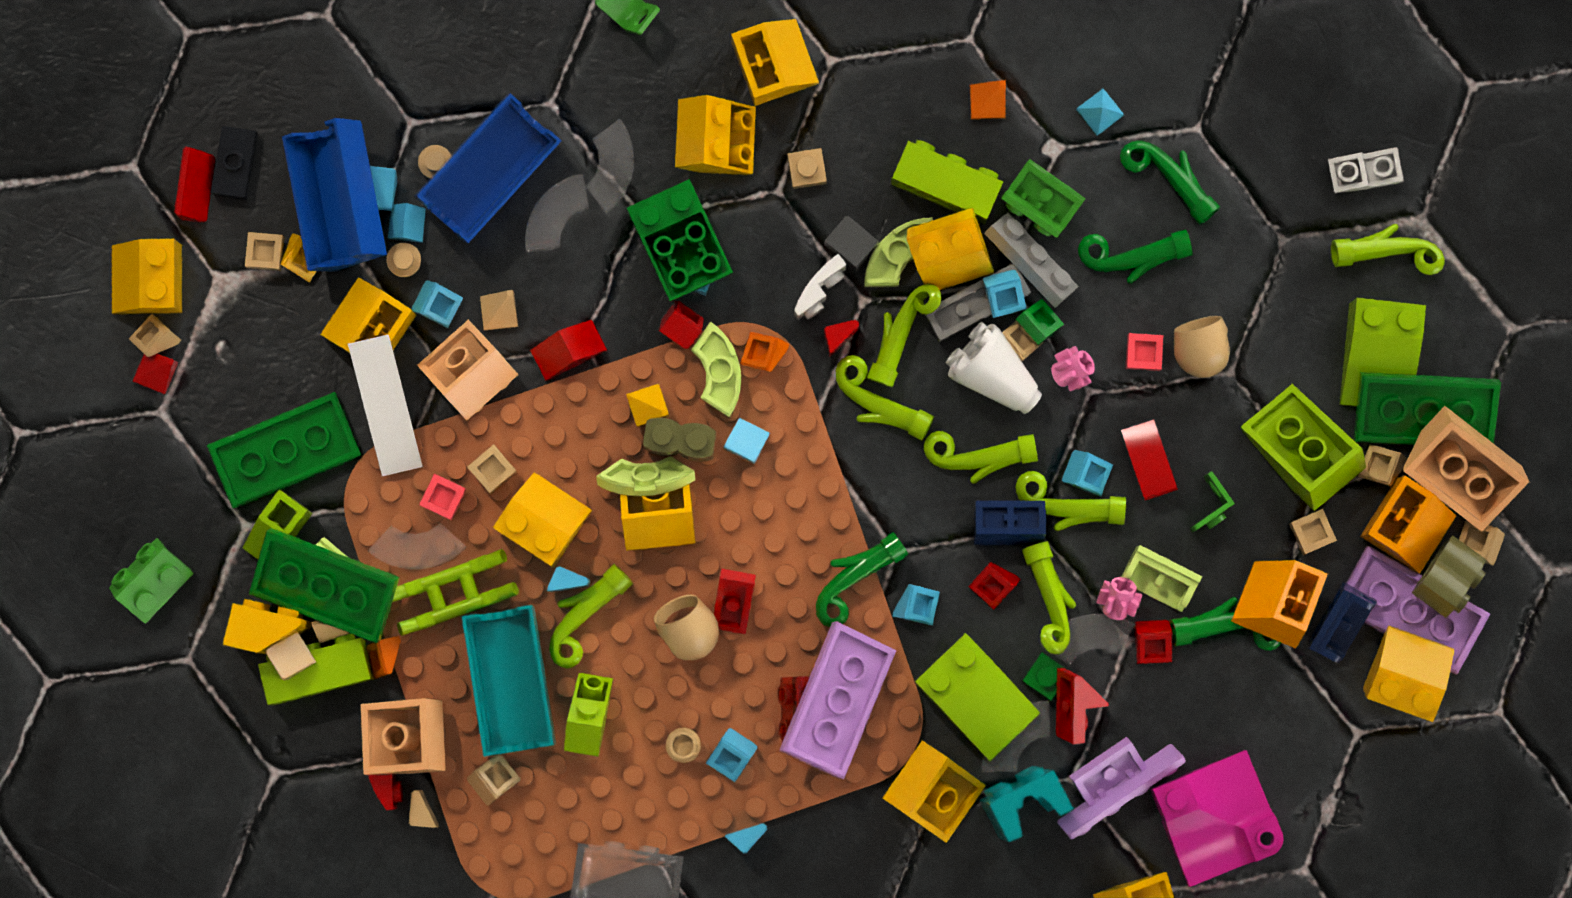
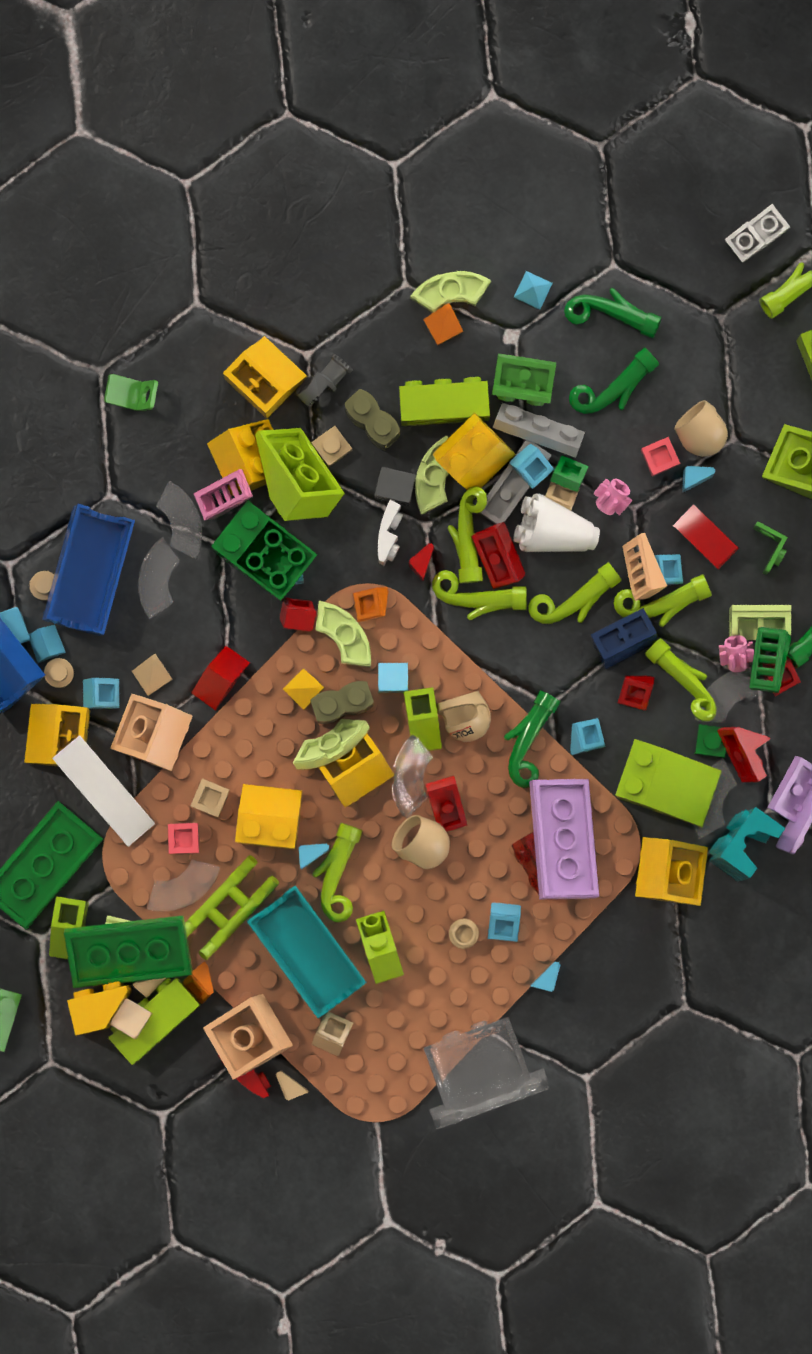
camera: 25 degrees left, 0 degrees up
(647, 160) = (206, 501): none -> bright pink slope
(709, 551) = (409, 774): none -> clear tile
(753, 179) = (296, 475): none -> lime slope
(754, 500) = (423, 717): none -> lime slope
(800, 520) = (465, 716): none -> tan helmet
(838, 95) = (328, 378): none -> dark grey connector
(866, 169) = (379, 425): none -> olive brick
(922, 369) = (498, 555): none -> red slope
(1014, 66) = (450, 288): none -> yellowish green tile
(1065, 469) = (642, 583): none -> light nougat slope
(1169, 617) = (761, 646): none -> green slope
(1171, 391) = (696, 475): none -> medium azure slope

